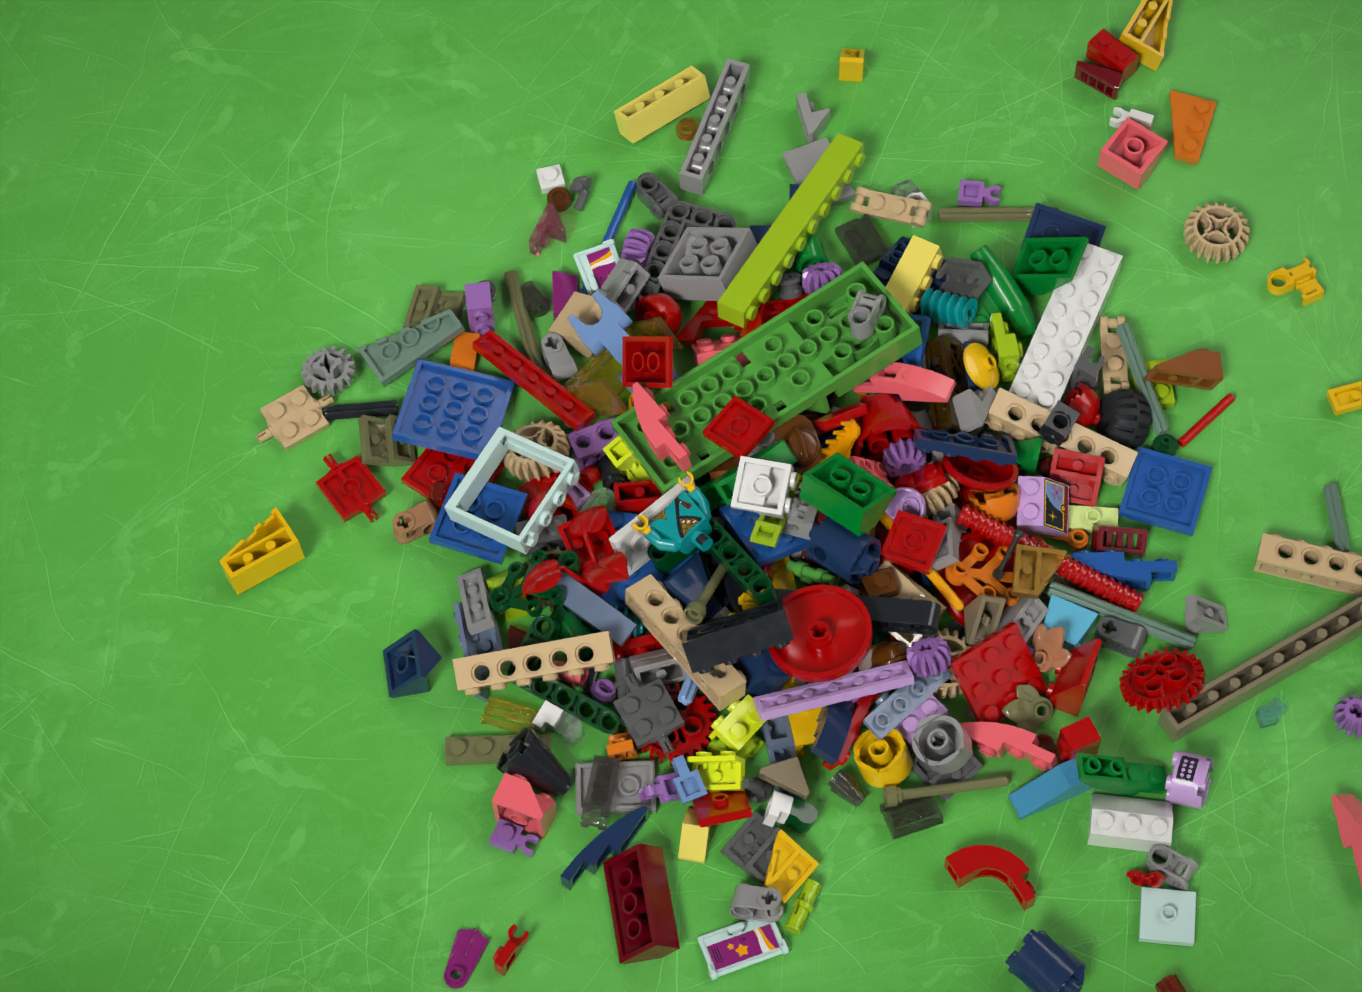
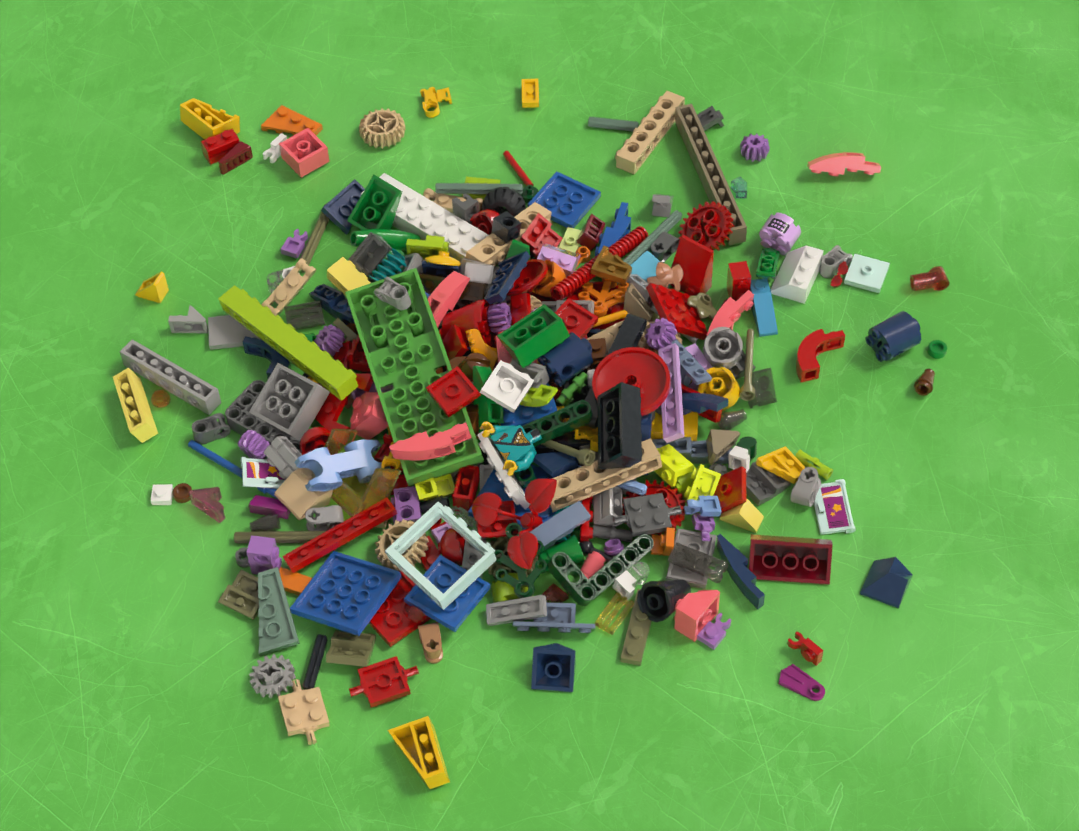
camera: 75 degrees left, 10 degrees down
(467, 667) = (578, 618): tan brick -> none
(581, 186) = (181, 473): dark grey plate -> none
(647, 361) = (373, 435): red slope -> none
(998, 573) = (584, 266): pearl dark grey hinge -> none
(1194, 369) = (483, 161): dark orange slope -> none

